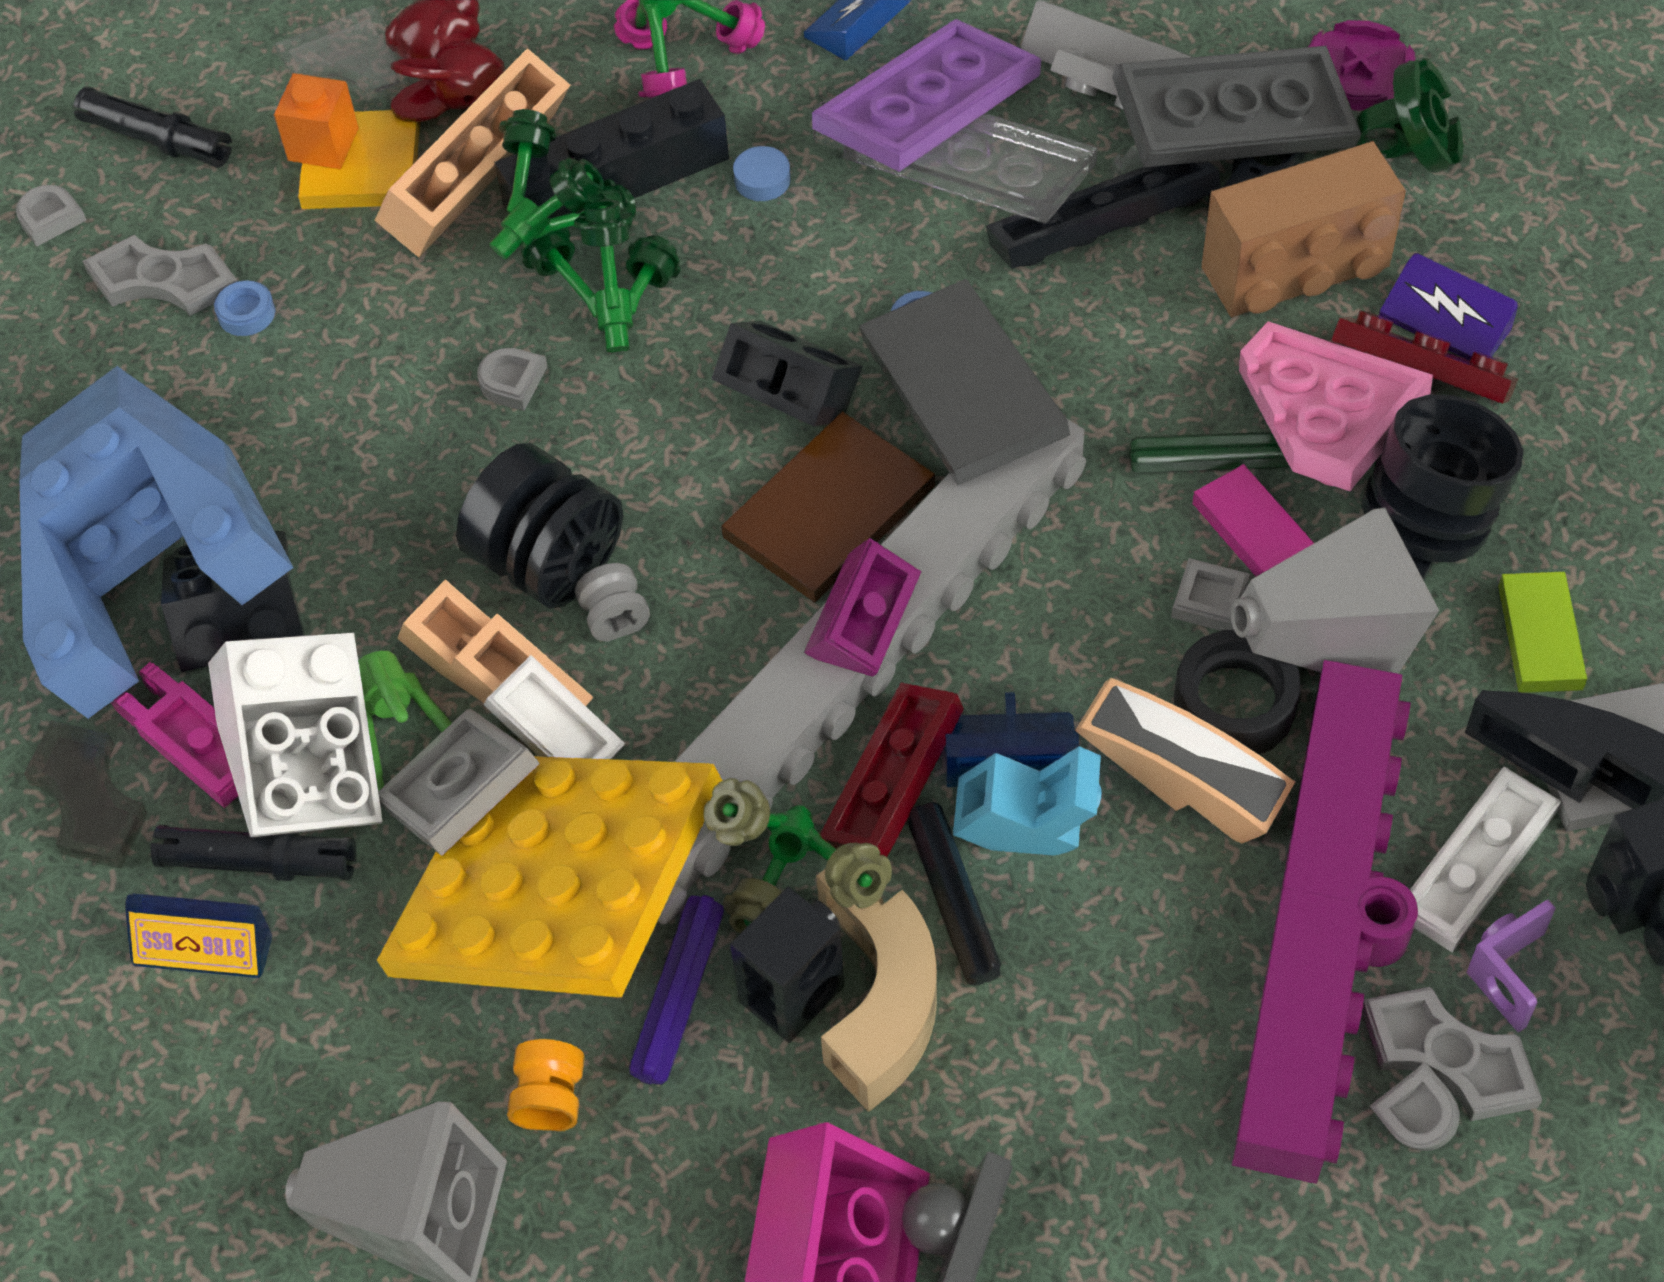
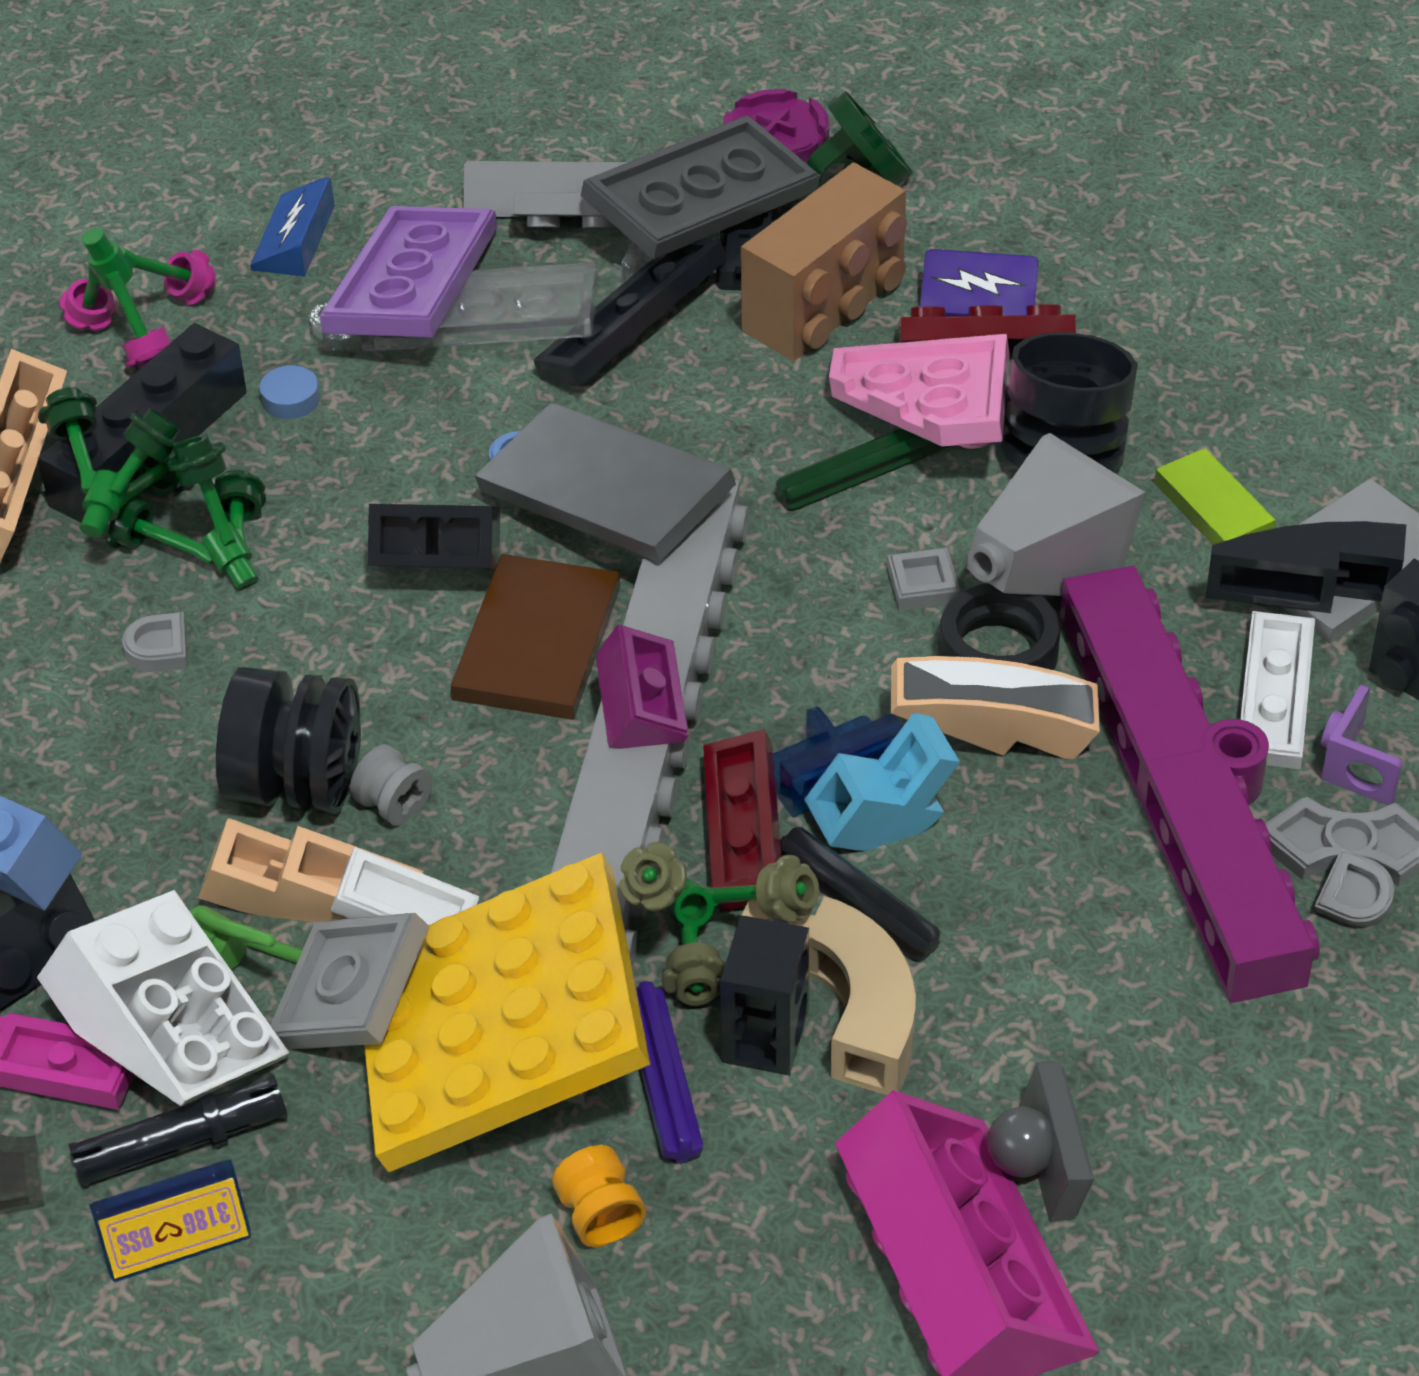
camera: 30 degrees left, 10 degrees down
(1250, 520) = (922, 510): dark pink tile -> none

